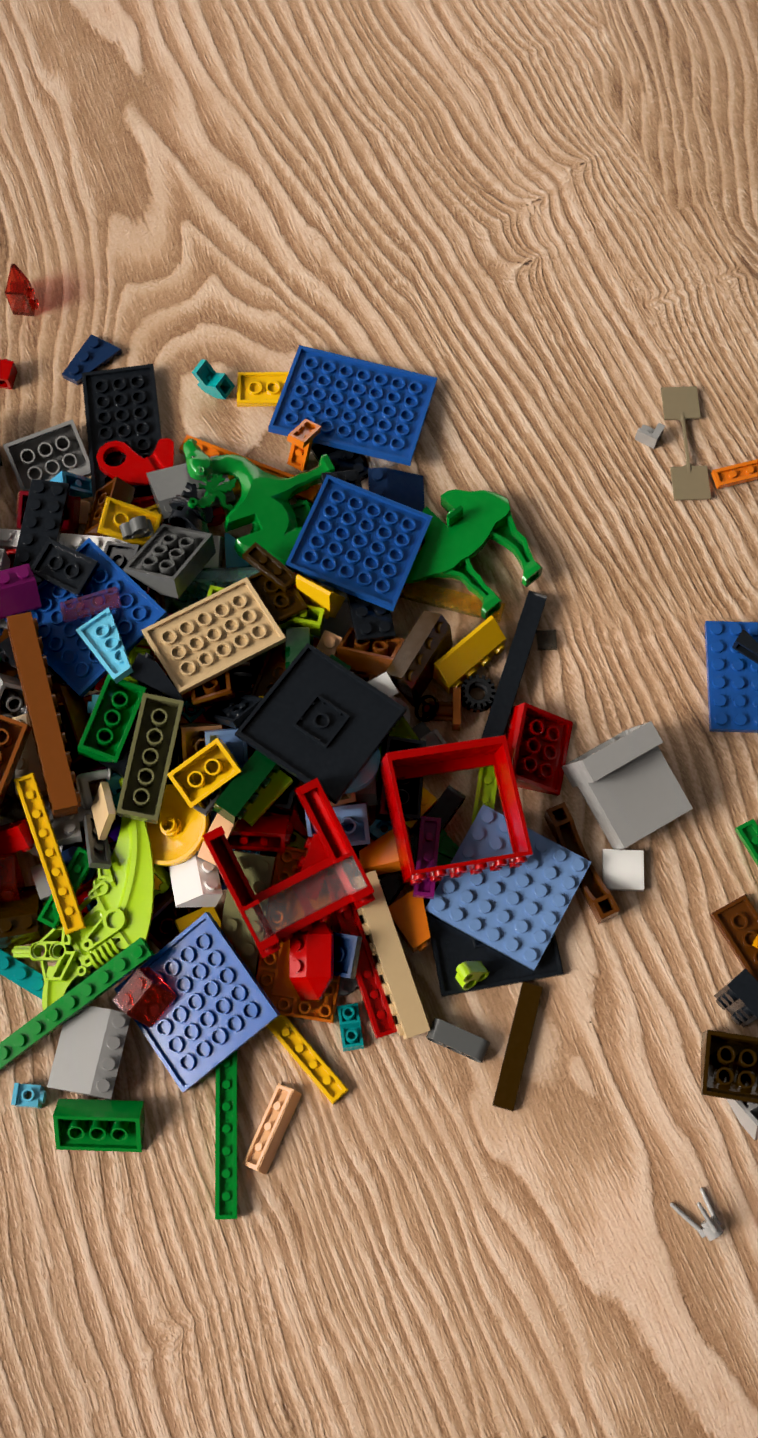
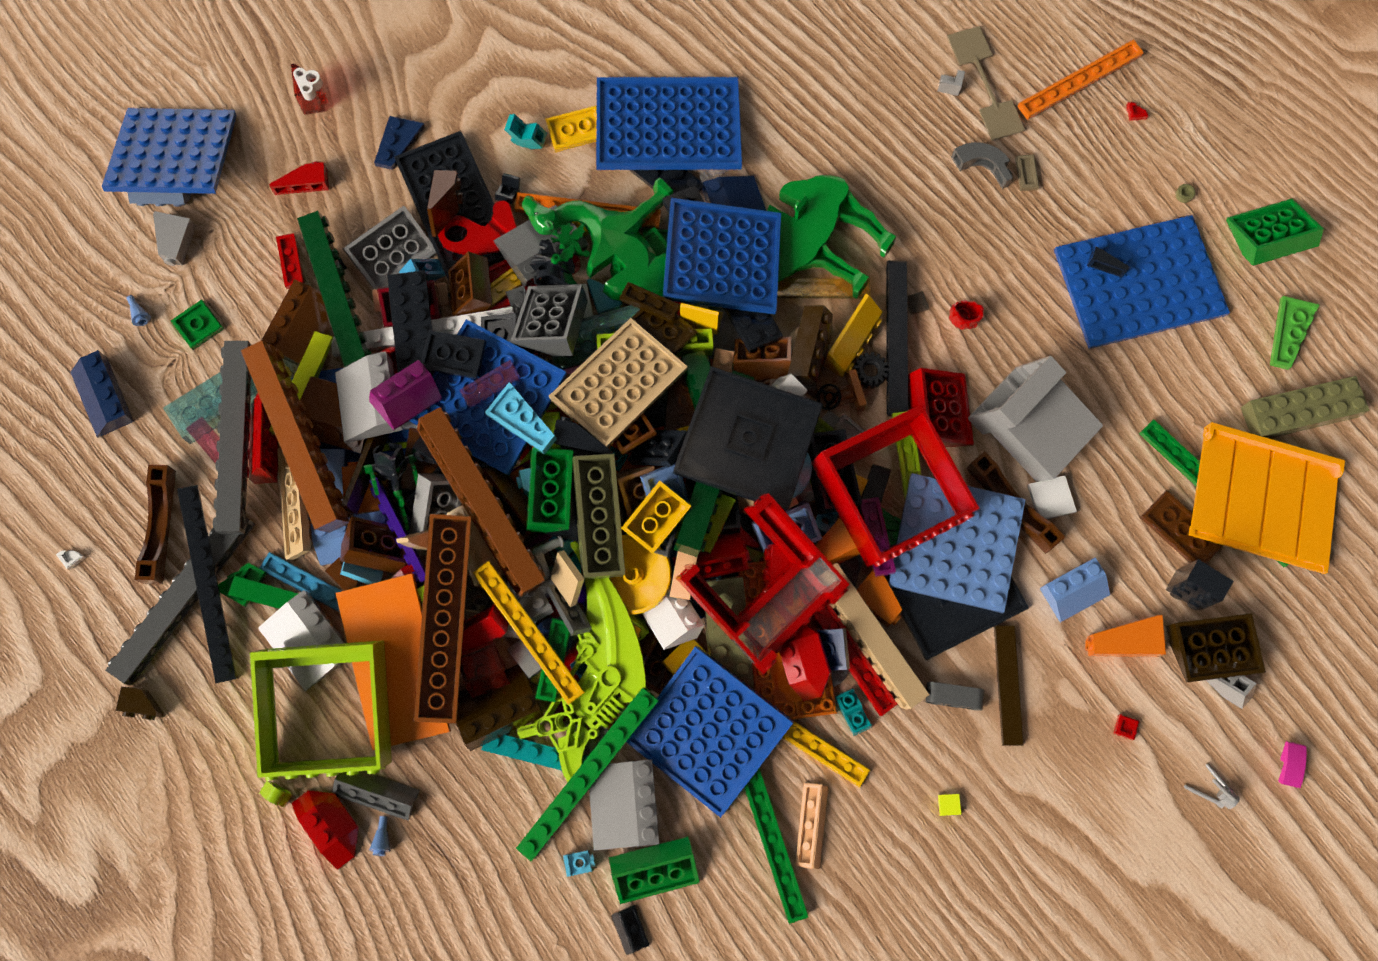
camera: 20 degrees left, 5 degrees up
(16, 284) = (308, 88): none -> white piece
(58, 1178) = (630, 930): none -> black slope
(110, 423) = (444, 199): none -> reddish brown slope
(118, 512) = (496, 293): yellow tile -> none
(137, 528) = (507, 297): dark grey piece -> none
(145, 997) = (660, 741): clear red slope -> none
(179, 430) = (508, 188): none -> black bracket
(301, 444) = (633, 173): orange bracket -> none
(418, 1149) = (949, 804): none -> neon yellow tile
(470, 973) = (948, 632): lime piece -> none
(590, 663) = (966, 314): none -> red hair
(618, 969) = (1076, 589): none -> medium blue slope
(627, 1124) = (1126, 727): none -> red tile
(659, 512) = (986, 156): none -> dark grey arch
(659, 1035) = (1134, 639): none -> orange slope
(700, 540) = (1027, 172): none -> dark tan tile

